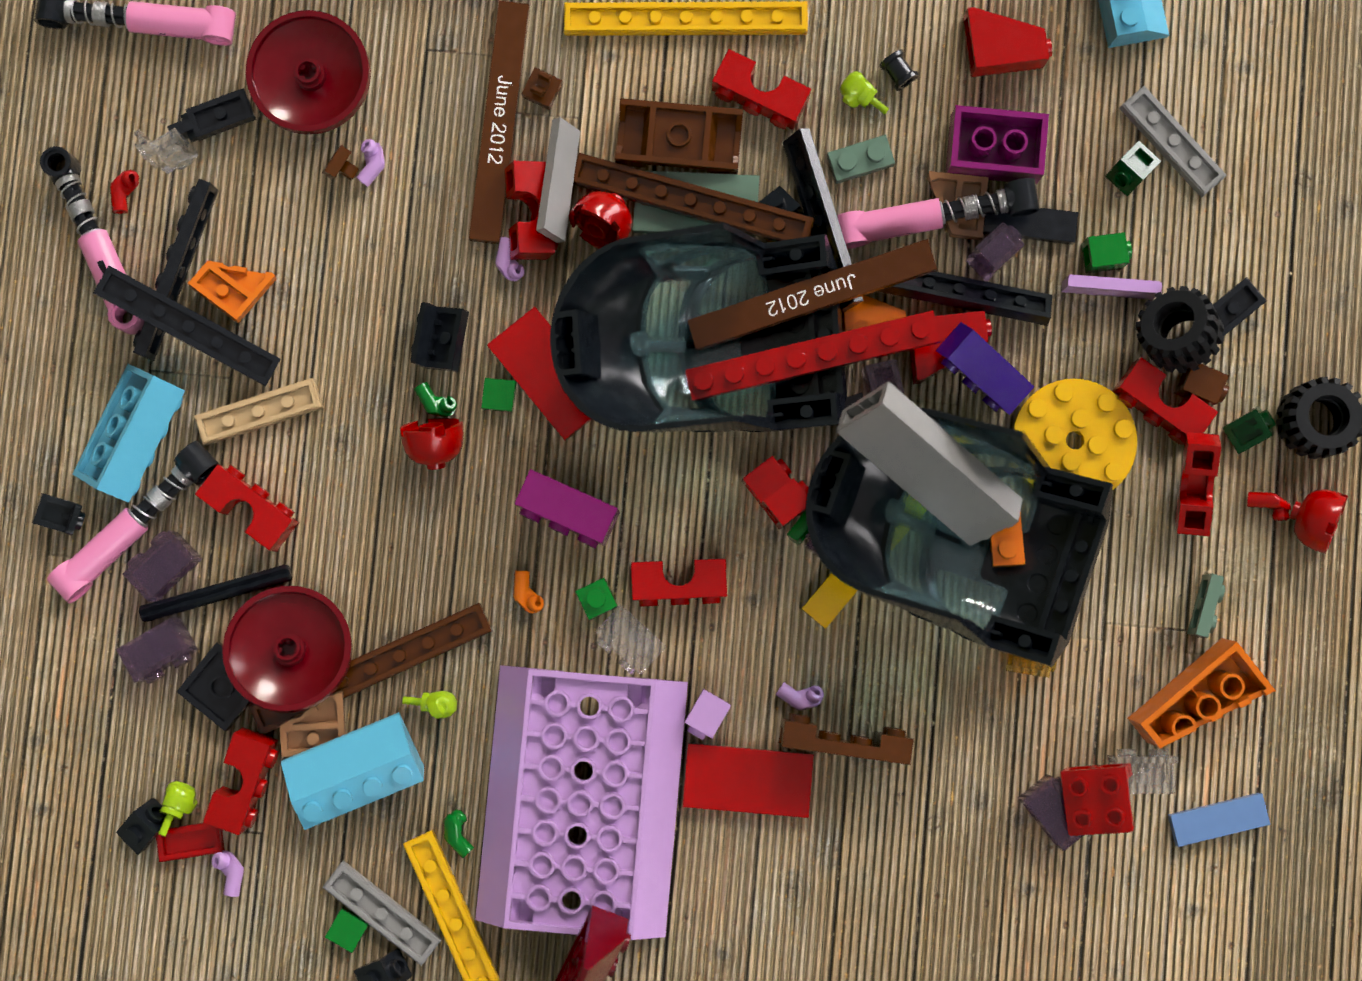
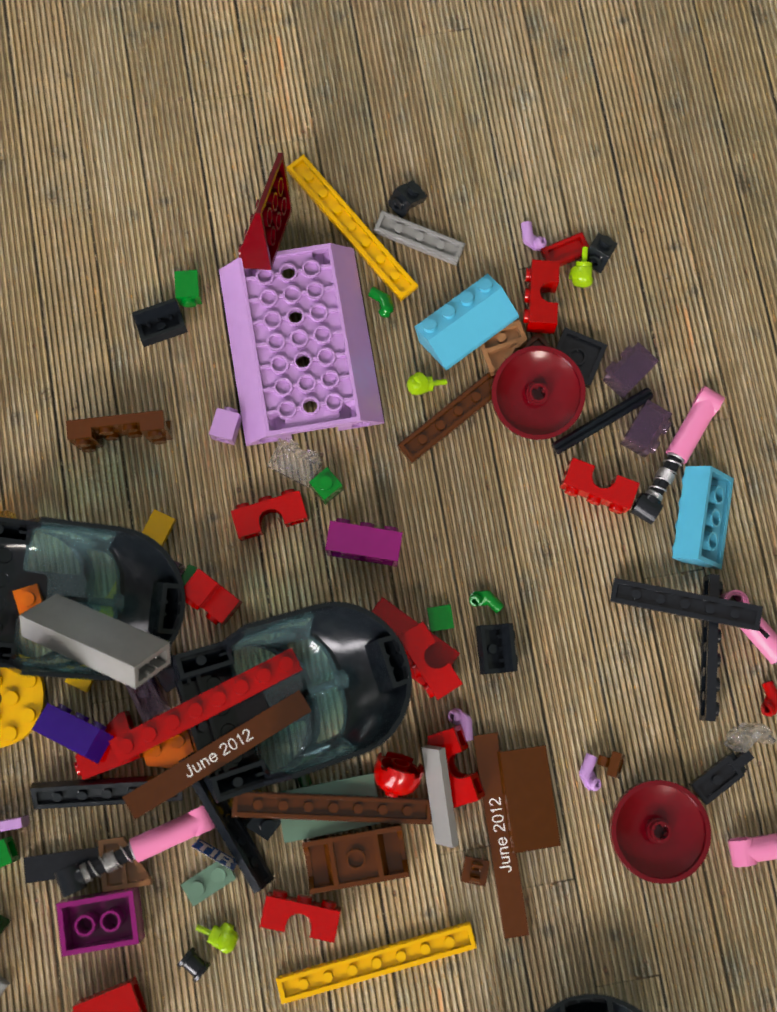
camera: 160 degrees right, 5 degrees down
(58, 514) = (732, 445): black bracket -> none
(231, 288) = (664, 645): orange wing -> none
(258, 411) = (613, 559): tan tile -> none
(347, 930) = (440, 220): green tile -> none
(433, 441) = (477, 568): red cylinder -> none
(453, 152) = (528, 799): none -> reddish brown tile
(520, 315) = (438, 681): none -> red arch
(524, 594) = (380, 476): orange arm -> none
(712, 919) = (188, 288): none -> green brick
(748, 780) = (187, 388): red tile -> none
(761, 880) = (159, 322): none -> black bracket
(801, 699) = (161, 454): lavender arm -> none
(845, 184) = (215, 854): none -> blue sticker
(995, 251) = (83, 830): clear purple brick -> none

